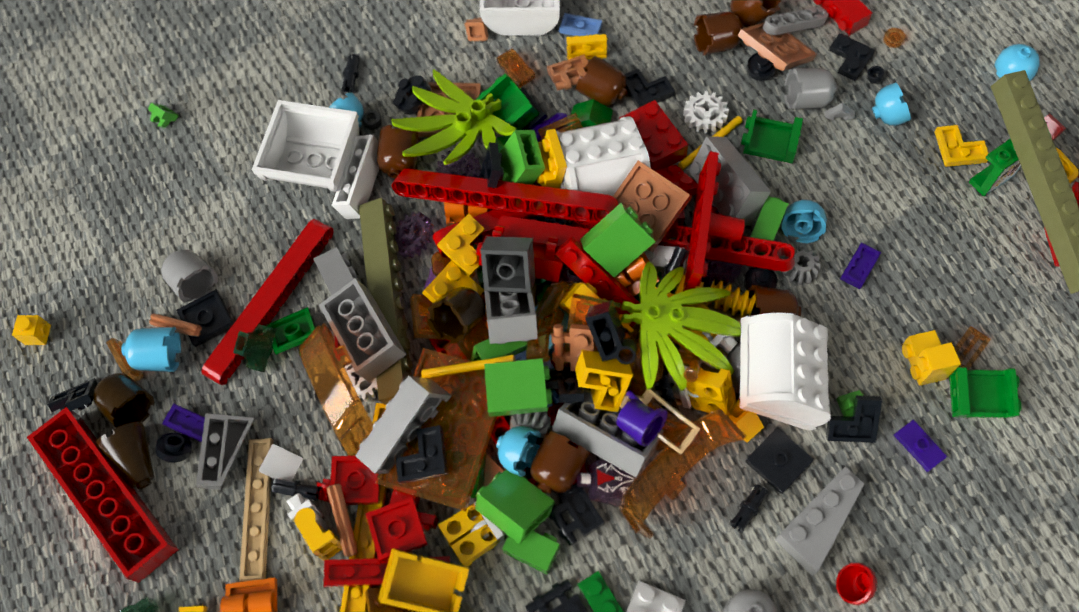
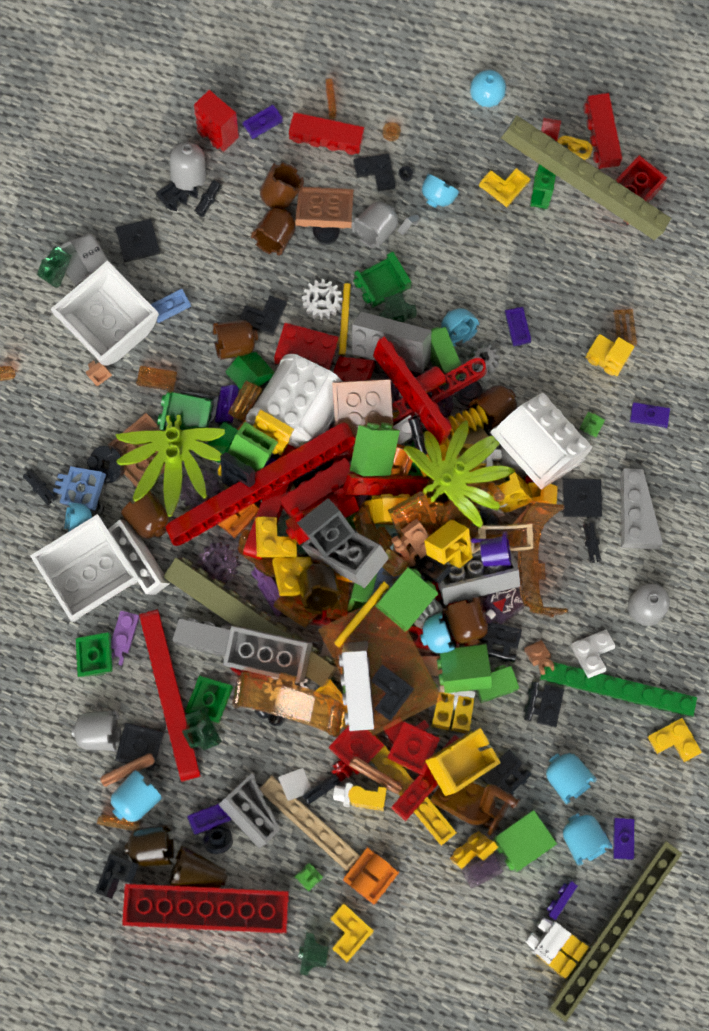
camera: 55 degrees left, 10 degrees up
(31, 330) = (31, 867): yellow brick -> none
(206, 553) = (308, 876): none -> bright green tile
(251, 220) = (94, 655): none -> green slope
(286, 227) = (123, 634): none -> medium lavender plate
(376, 94) = (80, 487): none -> medium blue piece
(567, 69) = (197, 345): nougat plate -> none
(587, 45) = (197, 316): yellow plate -> none
(596, 562) = (539, 655): none -> nougat plate
(609, 333) = (434, 516): black hinge -> none
(764, 165) = (398, 309): none -> clear green brick
(795, 21) = (318, 176): light grey beam -> none
(856, 583) = (686, 531): red piece -> none
(860, 426) = (609, 434): black plate -> none
(984, 393) = (658, 349): green panel -> none

